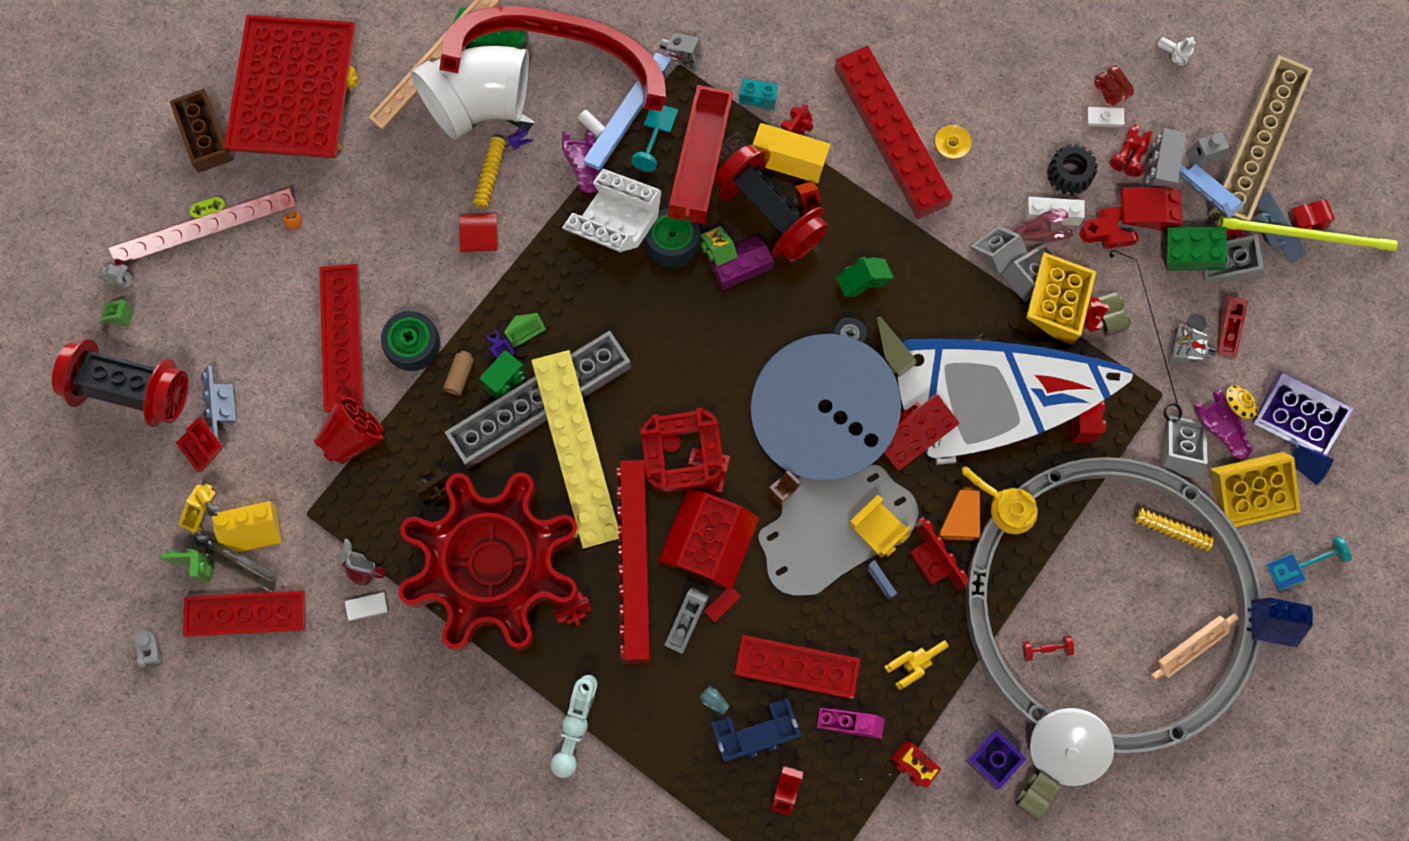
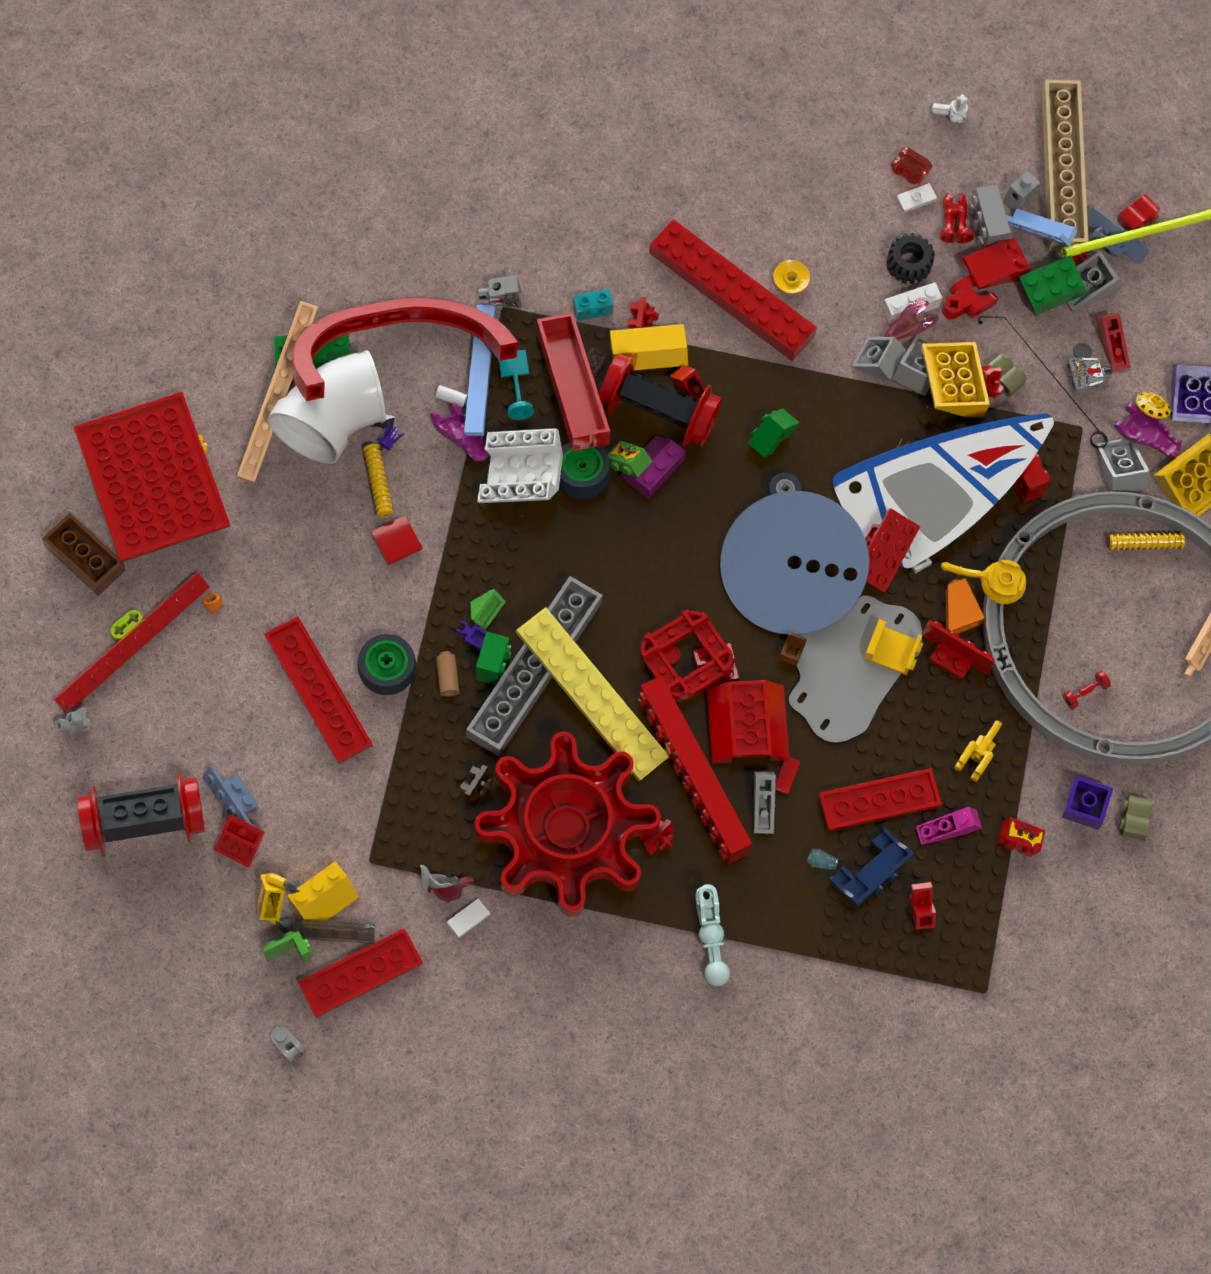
camera: 30 degrees left, 5 degrees down
(117, 313) = (92, 757): bright green slope -> none
(348, 431) = (374, 769): red cone -> none
(881, 580) = (917, 693): sand blue tile -> none
(895, 352) = (831, 486): olive slope -> none
(1072, 746) = (1146, 761): white dish -> none

